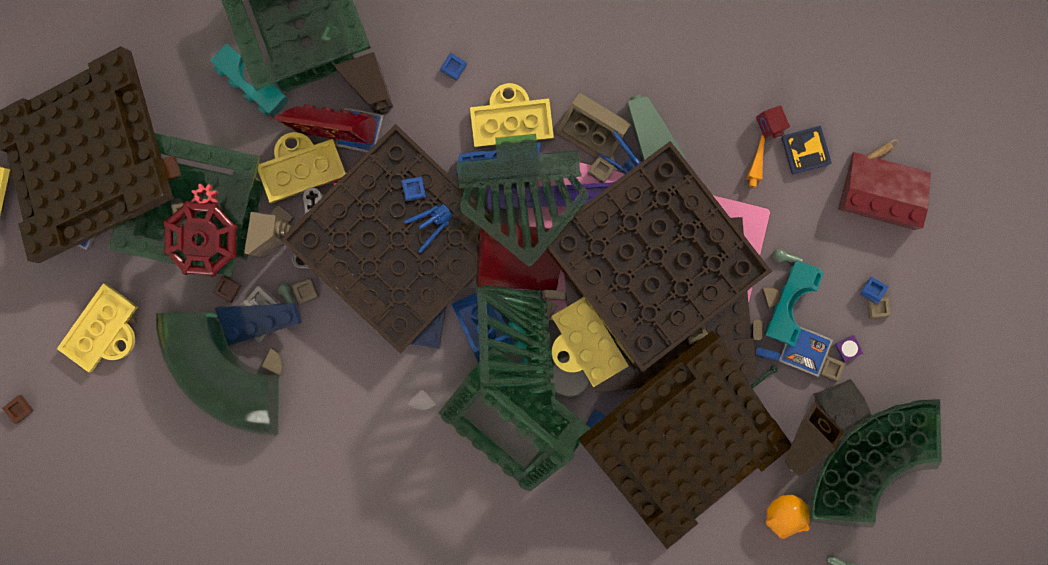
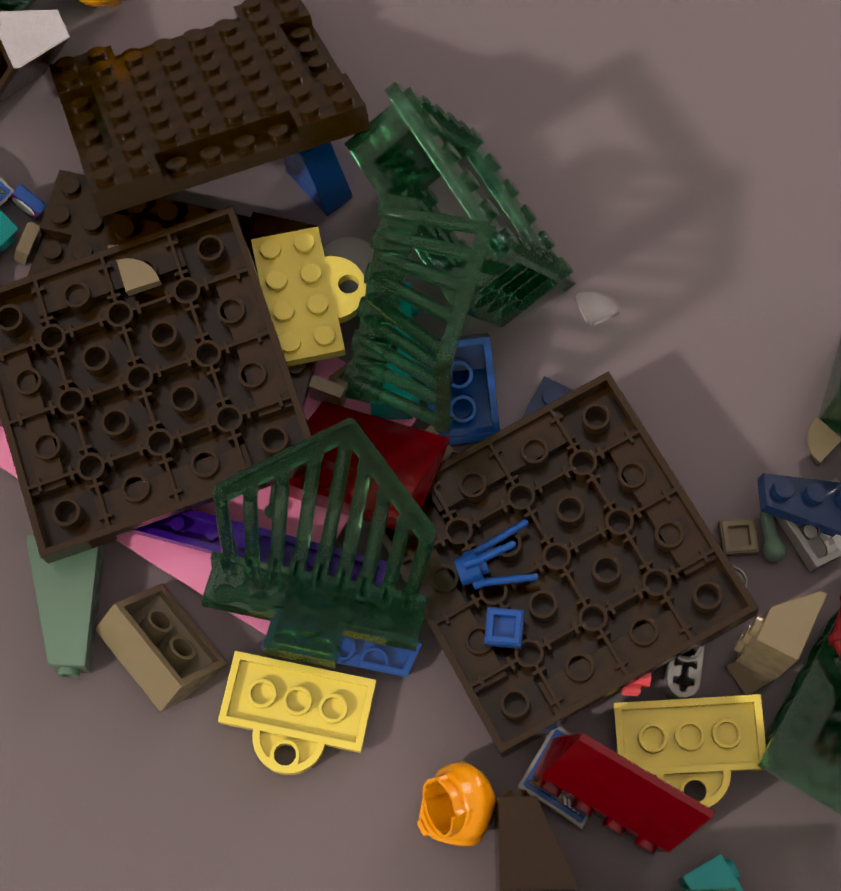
camera: 160 degrees left, 15 degrees down
(411, 96) = (457, 805): none -> light orange helmet
(453, 66) = (364, 840): blue tile -> none
(601, 170) = (175, 569): dark tan tile -> none
(632, 162) = (118, 562): blue plant -> none
(680, 311) = (137, 276): none -> dark tan tile
(773, 369) = (30, 184): clear green hinge -> none

